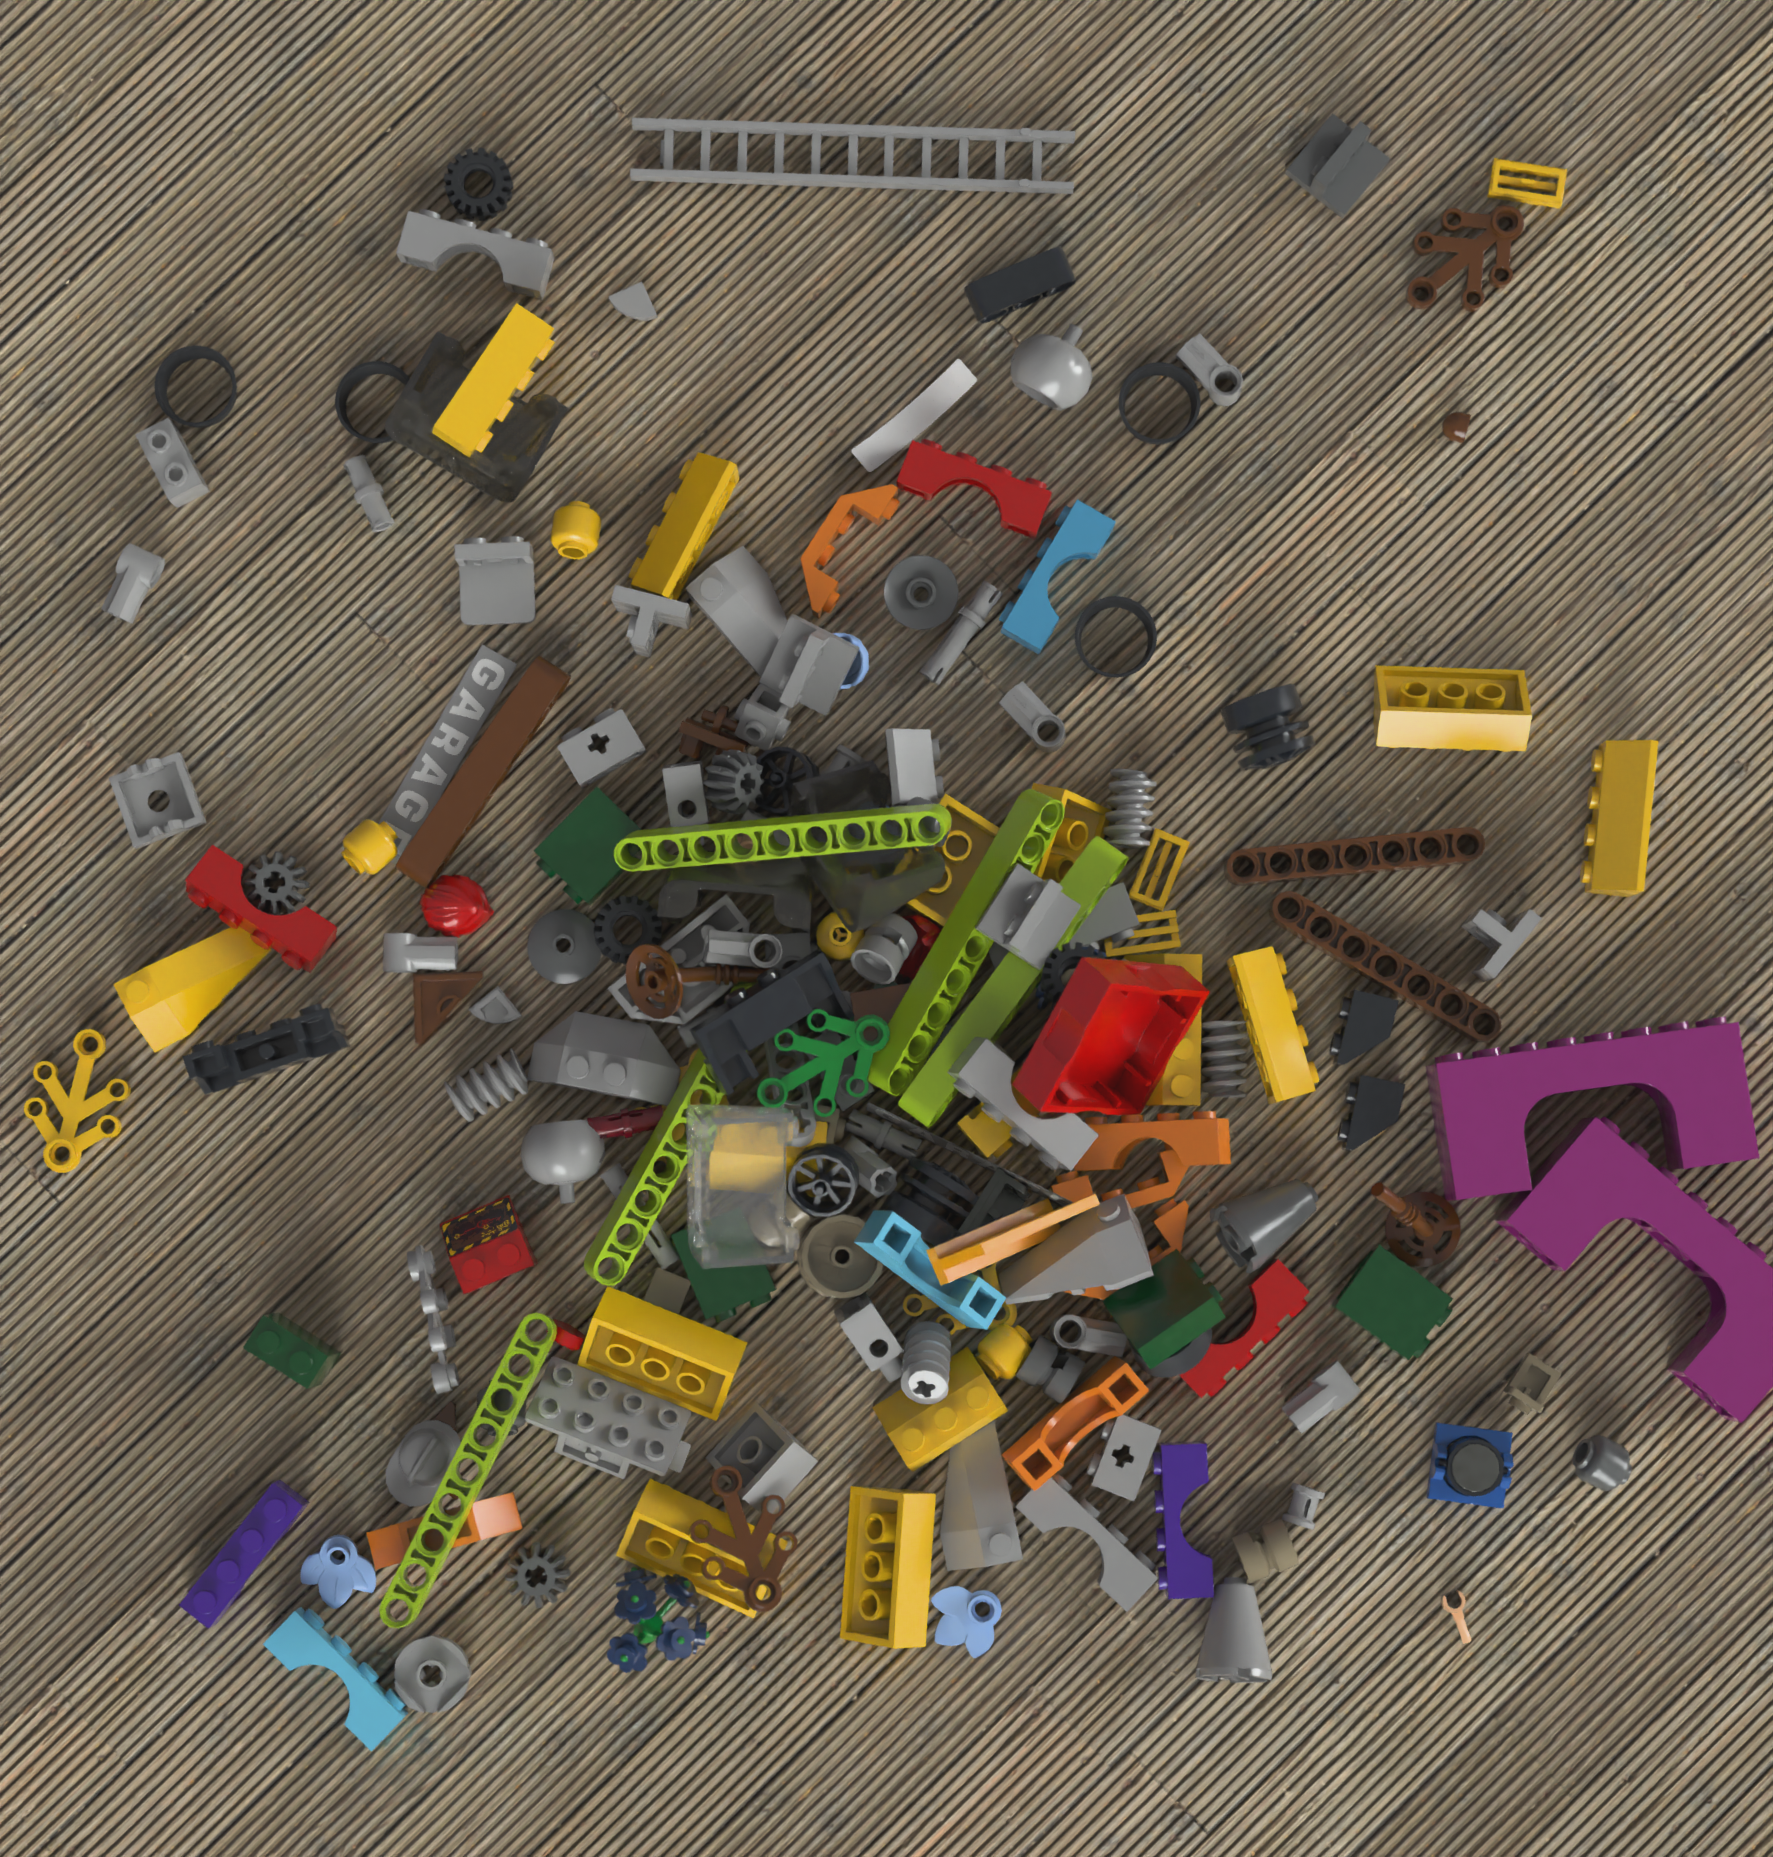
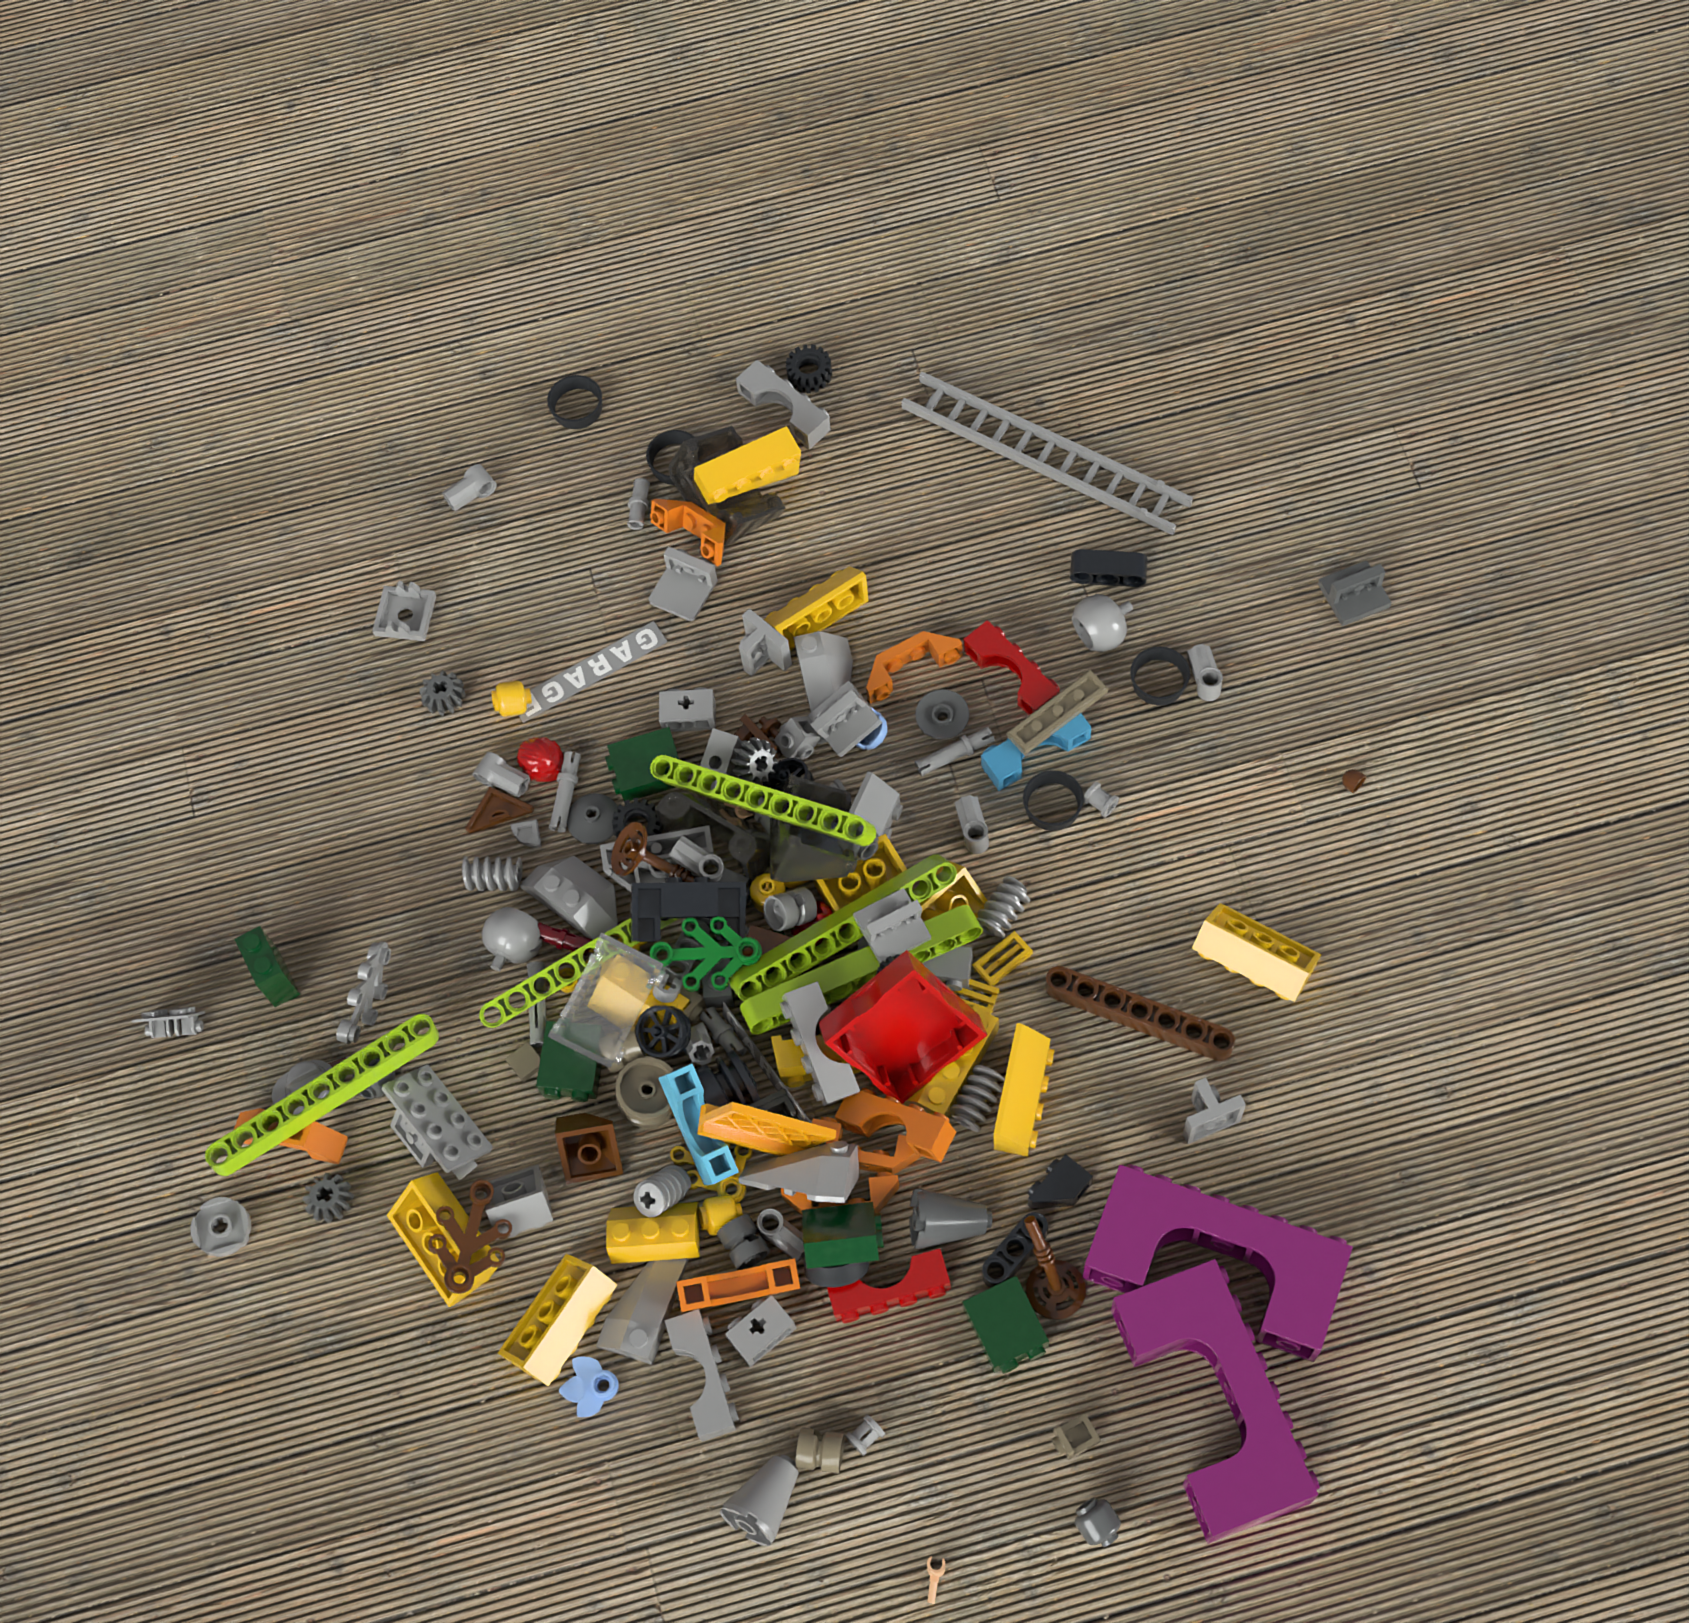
camera: 35 degrees right, 20 degrees down
(74, 1107) = (241, 763): yellow plant -> none
(172, 463) = (534, 433): light grey brick -> none
(182, 989) = (348, 724): yellow wedge -> none
(198, 1478) = (162, 1023): none -> light grey hinge
(243, 1553) = (181, 1070): dark purple arch -> none
(265, 1053) = (363, 783): black bracket -> none
(298, 936) = (434, 727): red arch -> none
(304, 1642) = (168, 1228): medium azure arch -> none
(335, 1576) = (201, 1127): light blue plate -> none
(424, 490) = (675, 514): none -> orange slope
(483, 772) = (607, 689): reddish brown beam -> none
(487, 1245) = (429, 974): red slope -> none
(512, 935) = (567, 780): none -> light grey pin
(568, 1335) = (443, 1053): red tile -> none
(575, 530) = (748, 579): yellow head -> none
(634, 303) = (863, 473): light grey tile -> none
(639, 1608) = (378, 1273): dark blue plant -> none
(661, 1353) = (496, 1097): yellow slope -> none
(805, 1354) = (587, 1147): none -> reddish brown slope
(863, 1326) = (635, 1143): light grey torso -> none
(915, 416) = (999, 616): white sticker -> none
(1066, 524) = (1057, 712): none -> dark tan tile
(1171, 606) = (1101, 799): none -> light grey bush
(1181, 1470) = (793, 1363): dark purple arch -> none
(1267, 727) = (1123, 898): black wheel -> none
(1327, 1392) = (927, 1363): light grey piece -> none
(1345, 1227) = (1006, 1262): none -> black beam
(1365, 1024) = (1087, 1126): black slope -> none
(1403, 967) = (1121, 1082): reddish brown beam -> none
(1469, 253) = (1415, 681): reddish brown plant -> none
(1470, 1465) = (1000, 1471): piece -> none
(1522, 196) = (1474, 661): yellow tile -> none
(1619, 817) = (1338, 1076): yellow slope -> none

